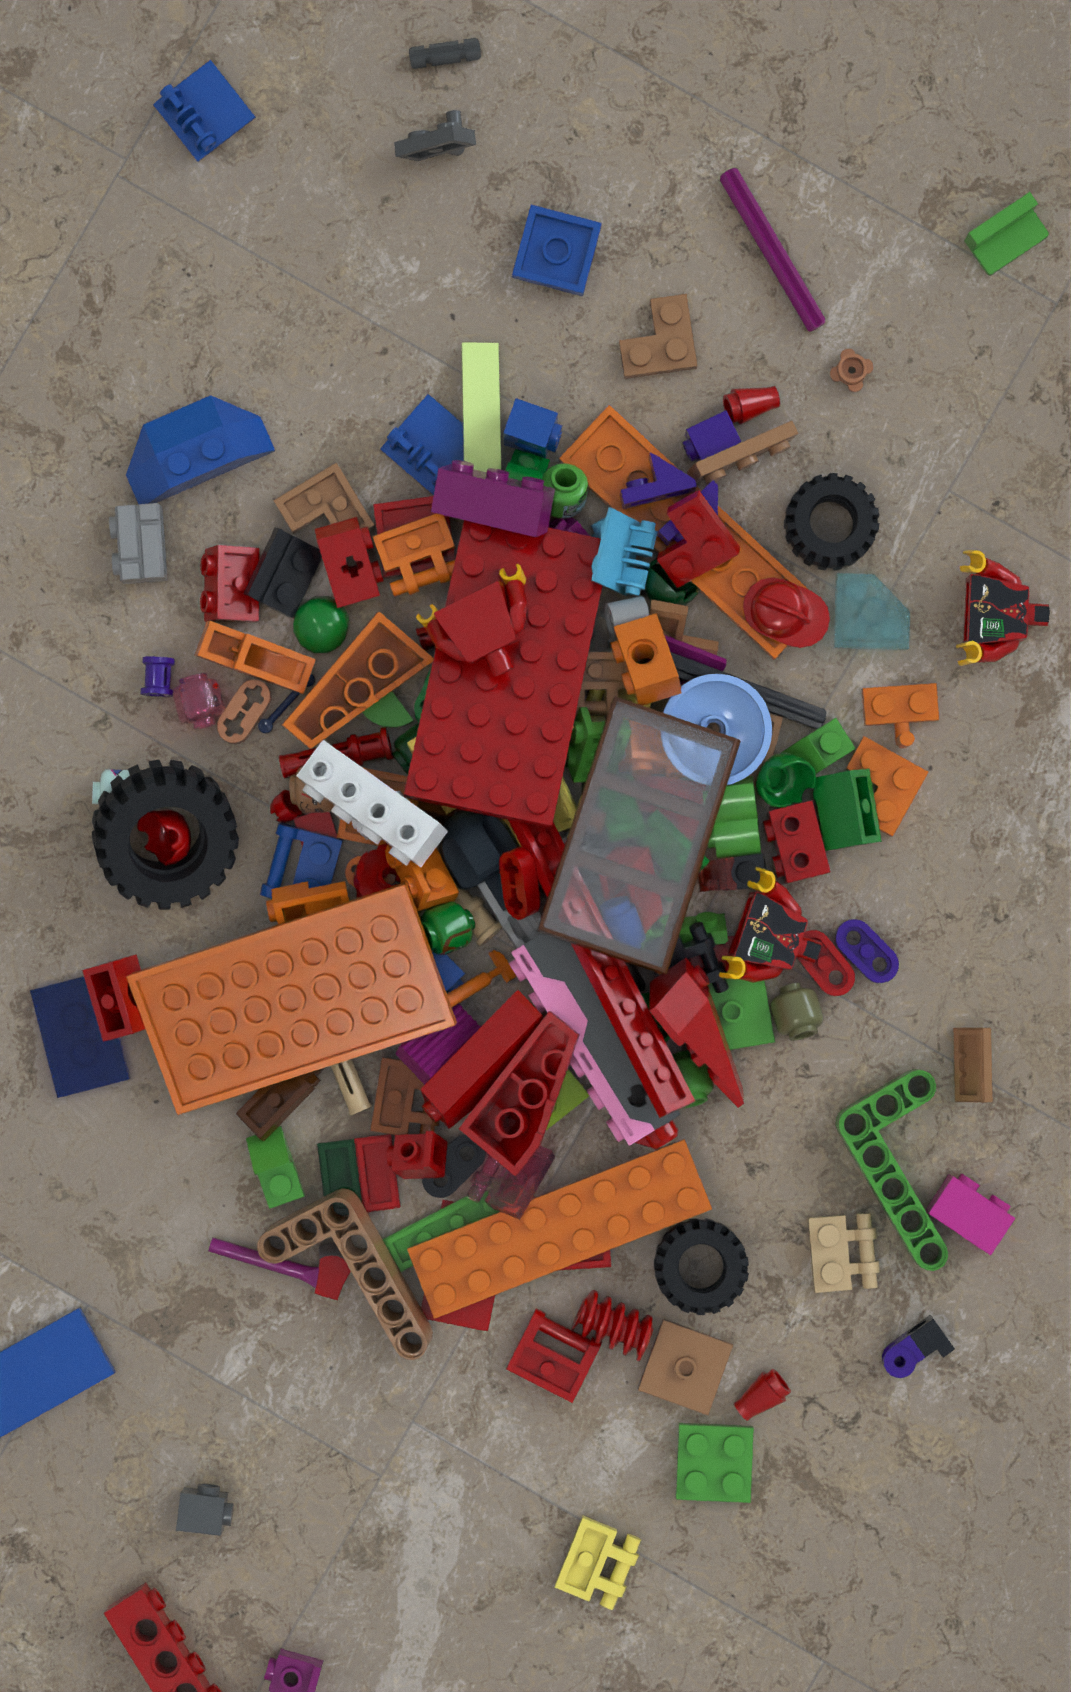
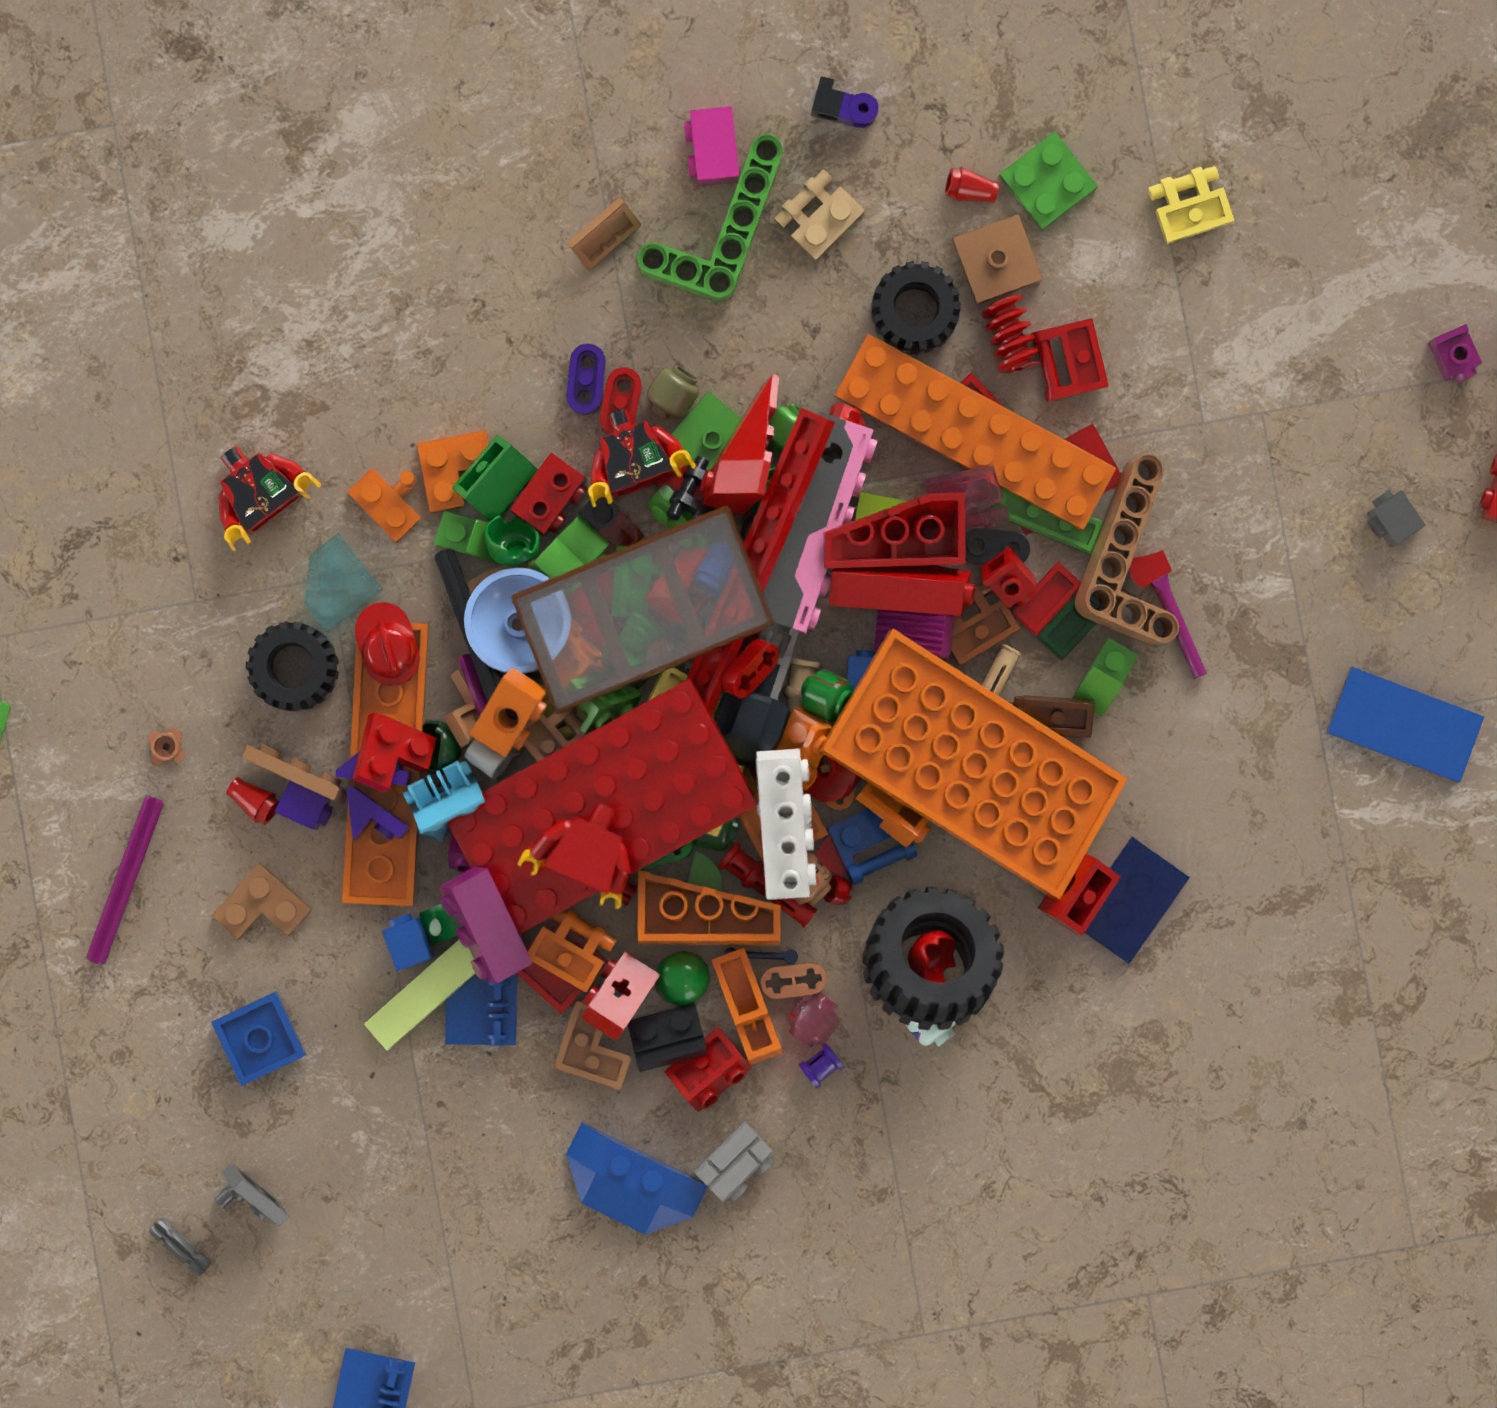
camera: 135 degrees left, 0 degrees up
(483, 979) = (841, 639): orange piece -> none
(570, 489) = (427, 877): bright green head -> none

